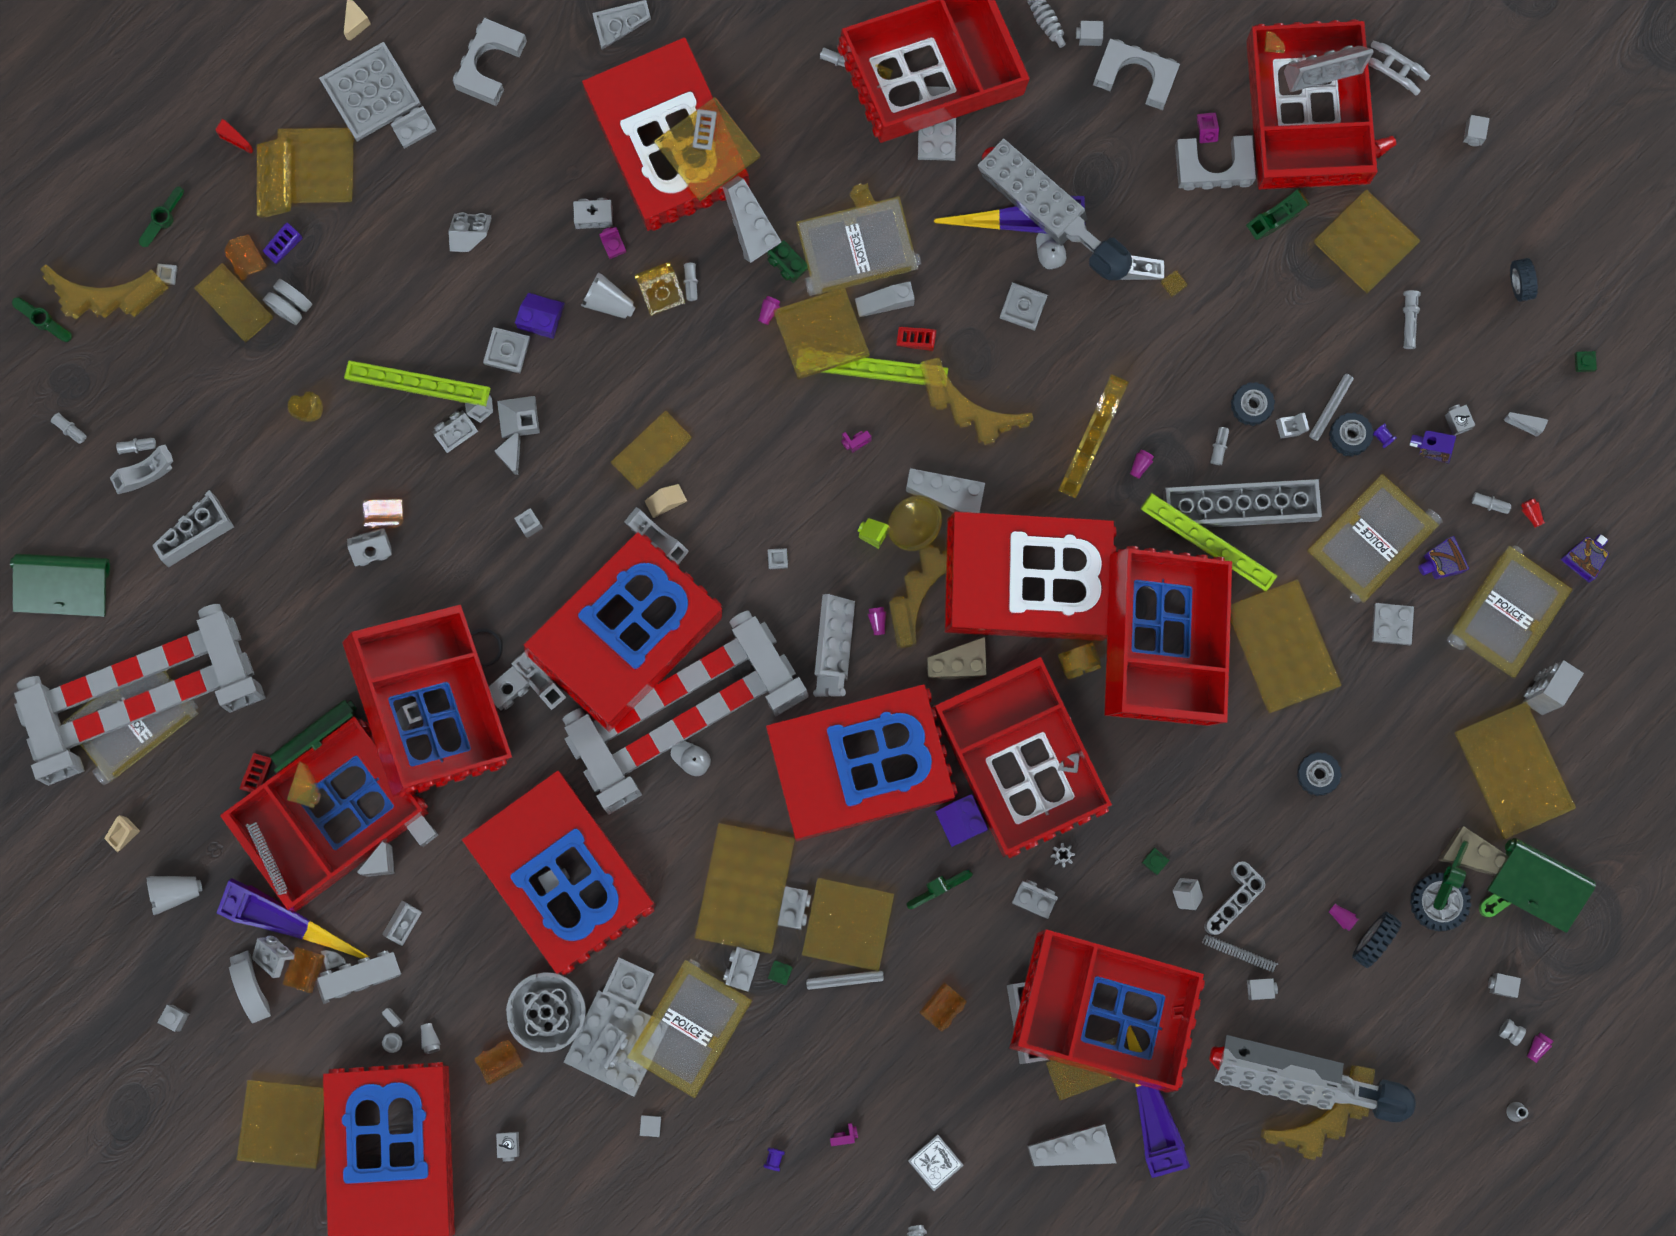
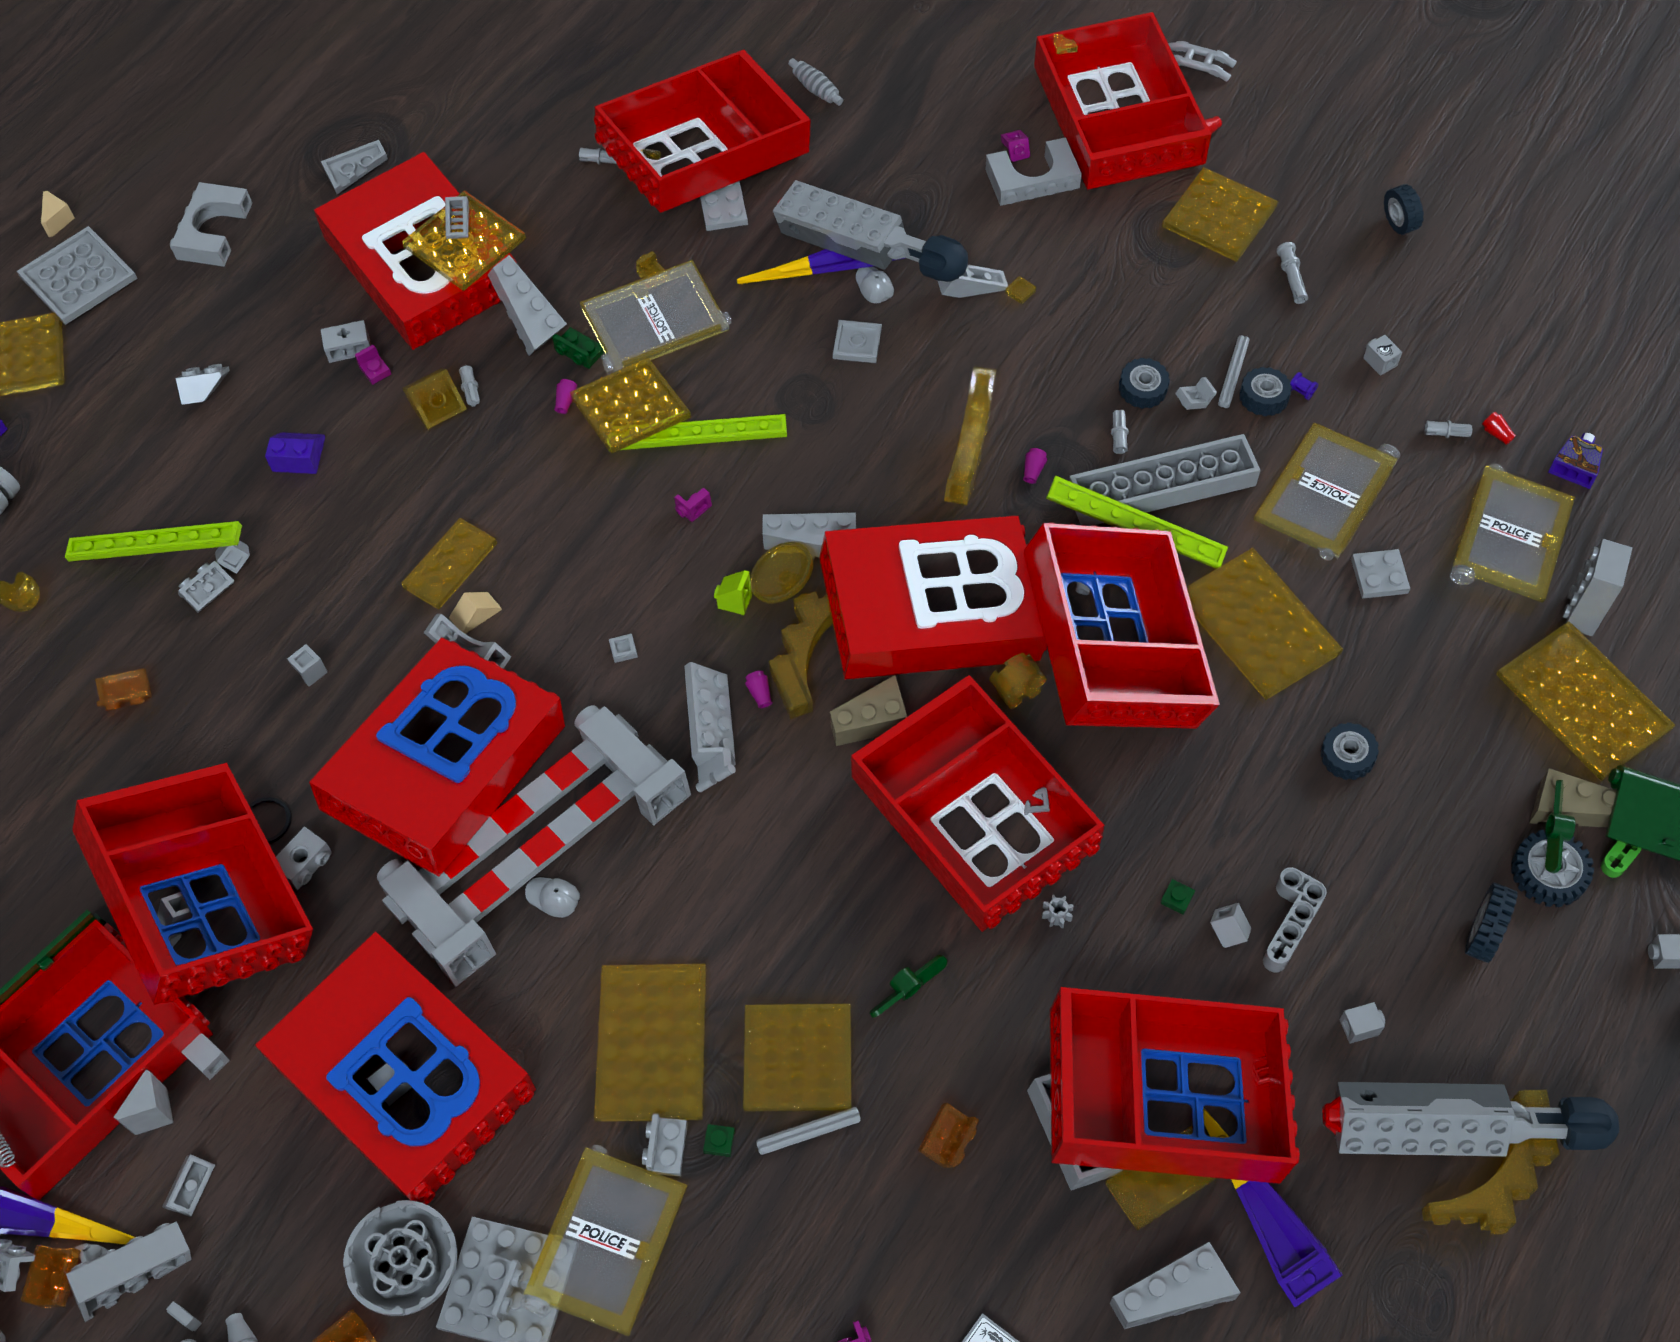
camera: 10 degrees left, 20 degrees down
(304, 787) = (29, 1018): clear yellow slope -> none
(377, 539) = (92, 730): light grey brick -> none
(413, 126) = (128, 298): light grey bracket -> none
(506, 350) = (260, 492): light grey plate -> none
(510, 452) = (275, 595): light grey slope -> none
(518, 416) = (282, 558): light grey slope -> none
(538, 681) = (343, 842): light grey arch -> none
(607, 298) = (372, 415): light grey cone -> none
(628, 983) = (512, 1197): light grey plate -> none
(793, 908) = (720, 1052): light grey bracket -> none
(819, 775) = (718, 868): red panel -> none
(885, 299) = (701, 359): light grey slope -> none
(917, 331) = (750, 385): red slope -> none
(961, 820) = (918, 896): dark purple slope -> none
(986, 422) = (815, 450): clear yellow arch -> none
(1035, 899) = (1036, 972): light grey bracket -> none
(1090, 33) = (867, 86): light grey brick -> none
(1119, 55) = (904, 98): light grey arch -> none
(1243, 952) = (1293, 977): light grey piece -> none
(1278, 216) = (1118, 205): dark green arch -> none
(1327, 68) = (1128, 45): light grey slope -> none
(1343, 917) = (1438, 912): magenta cone -> none
(1441, 445) = (1365, 381): dark purple torso -> none
(1444, 560) = (1417, 494): torso -> none
(1476, 130) = (1302, 95): light grey brick -> none
(1530, 424) = (1457, 343): light grey slope -> none
(1585, 361) = (1499, 277): dark green plate -> none

